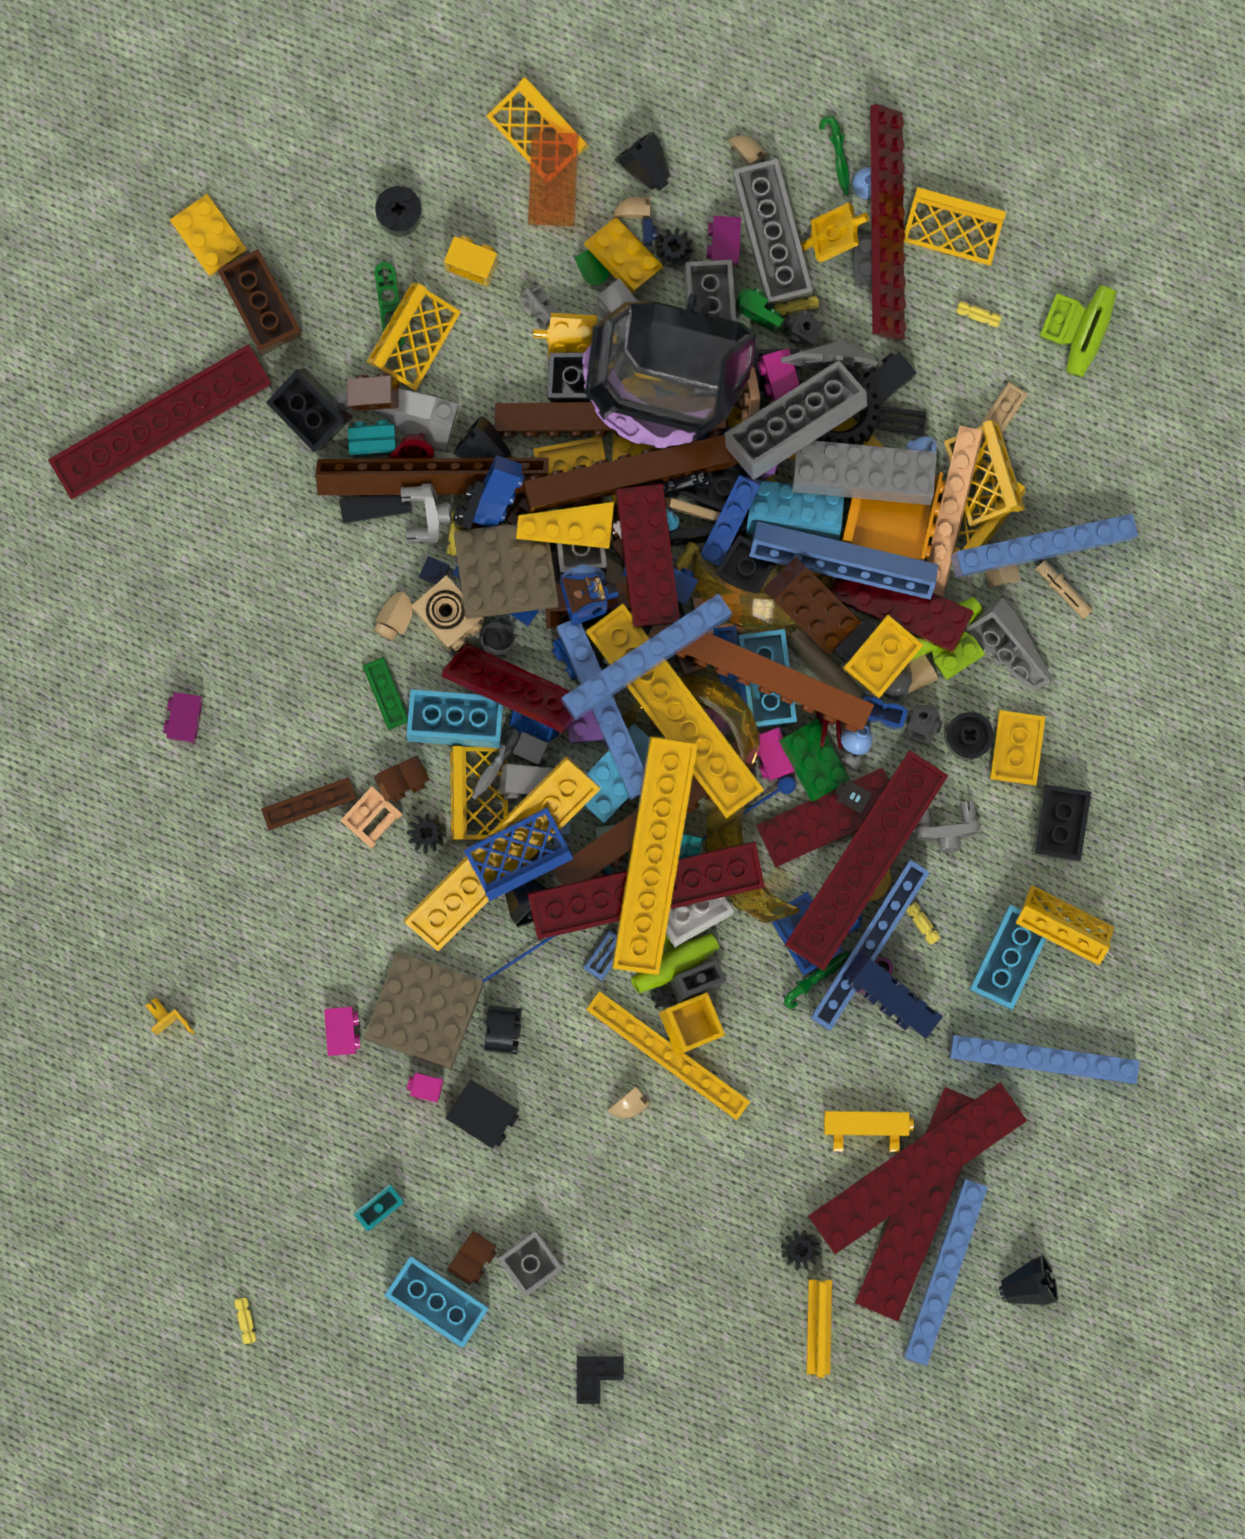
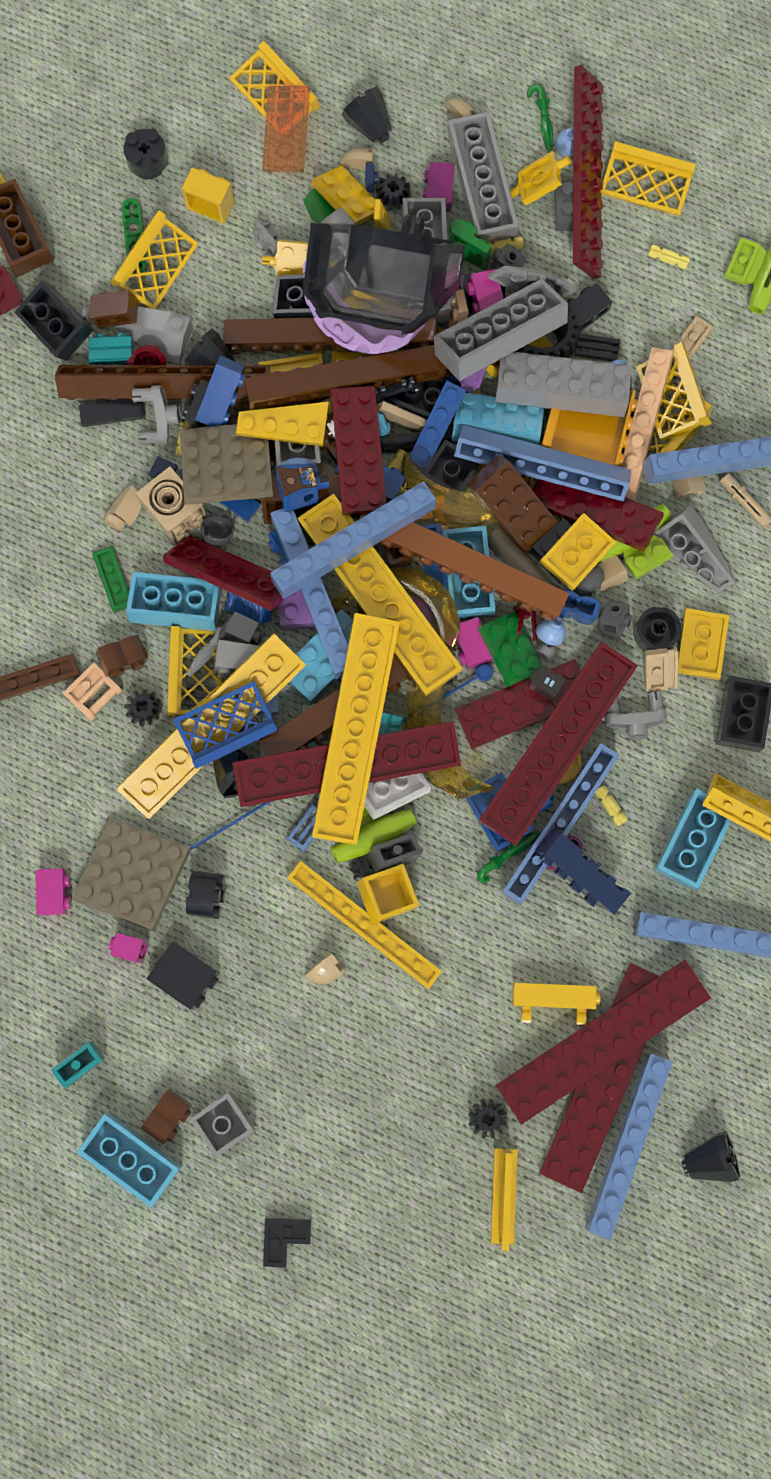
camera: 10 degrees right, 5 degrees down
(663, 285) = (381, 216): none -> yellow slope
(973, 778) = (661, 669): none -> tan plate

